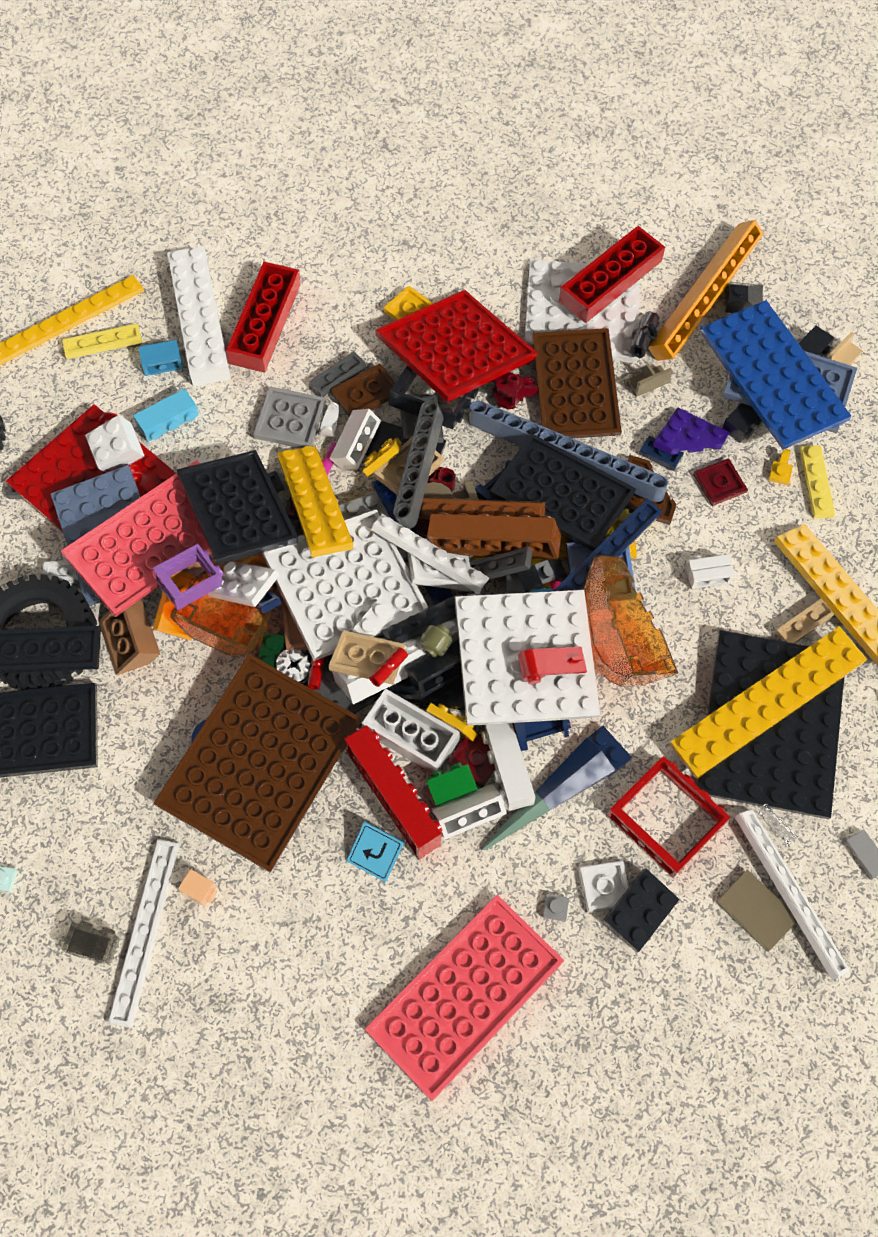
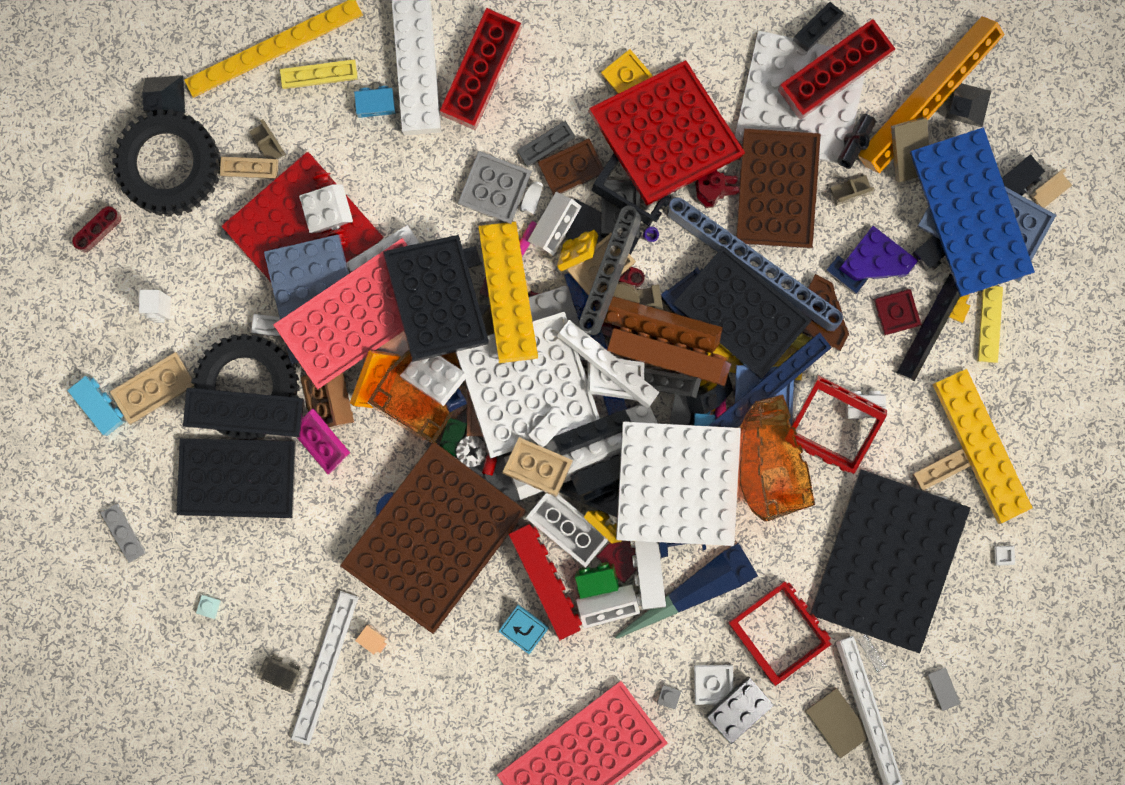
camera: 10 degrees right, 20 degrees up
(33, 428) = (249, 167): none -> tan plate
(53, 404) = (267, 142): none -> dark tan panel
(124, 677) = (322, 442): none -> dark pink plate
(166, 415) = (376, 170): medium azure brick -> none
(181, 561) = (363, 369): medium lavender window -> none
(388, 667) = (556, 482): red piece -> none
(435, 640) = (600, 458): olive head -> none
(453, 438) = (651, 230): none -> dark purple hinge
(550, 661) = (698, 498): door -> none
(586, 248) = (818, 26): none -> black plate
(691, 321) = (906, 138): none -> dark tan tile
(728, 566) = (852, 399): none -> red window
(758, 491) = (929, 330): none -> black plate
(767, 702) = (889, 544): yellow plate -> none

